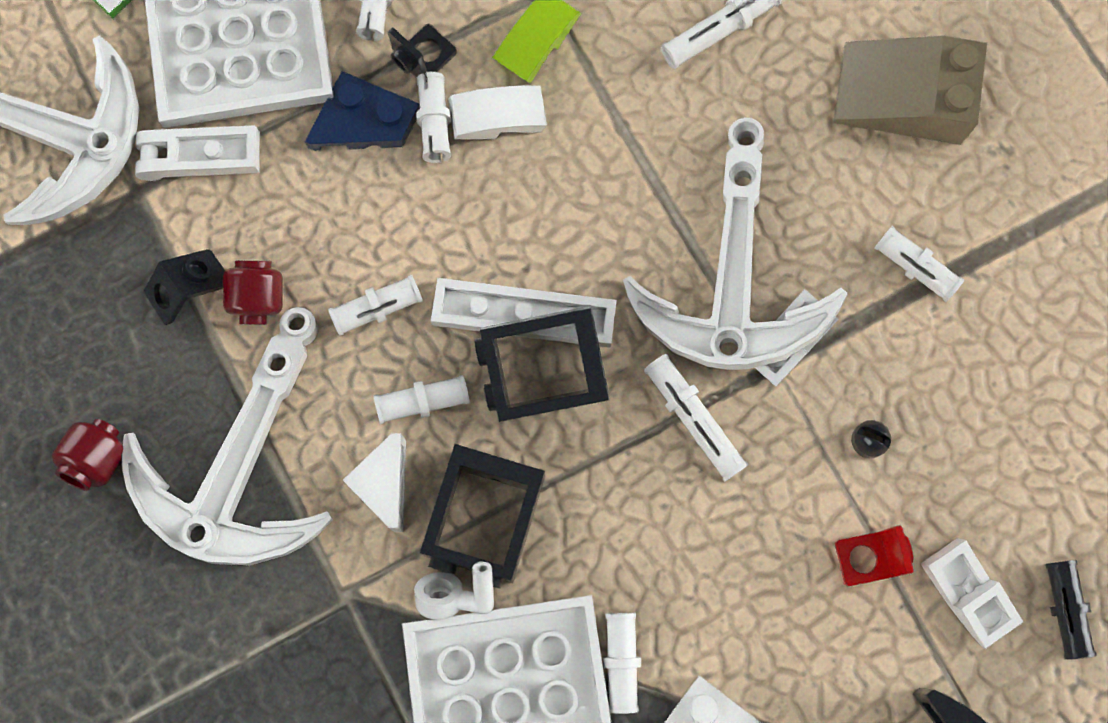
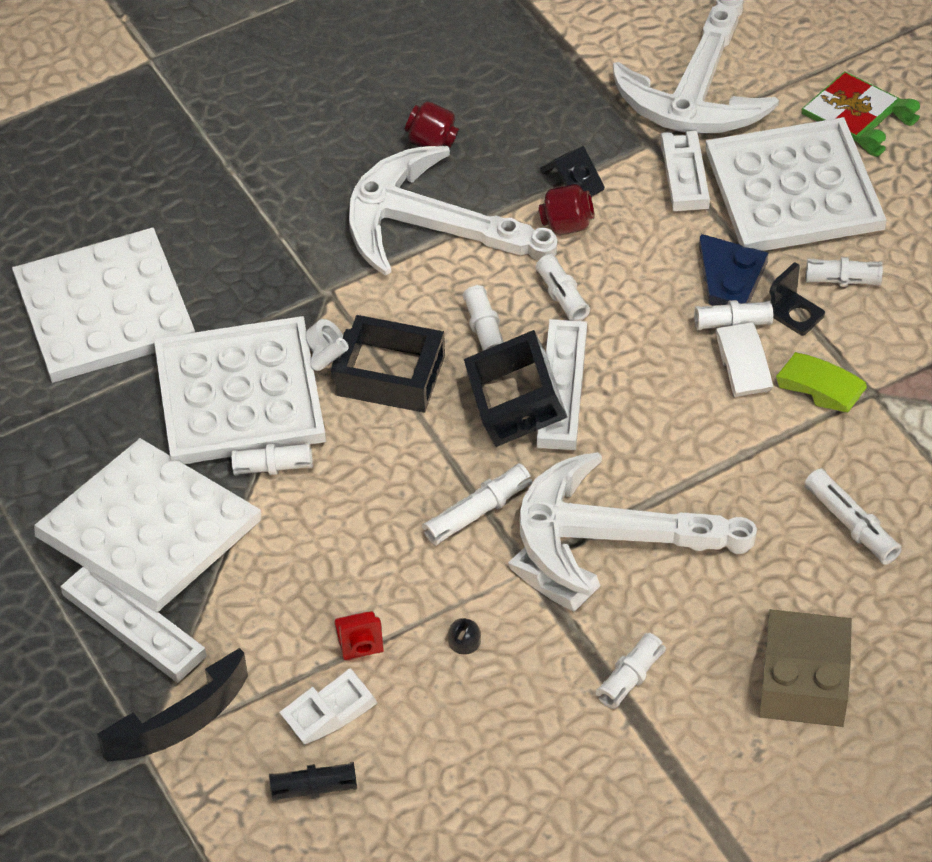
camera: 90 degrees right, 25 degrees down
(381, 481) = (414, 300): white slope -> none

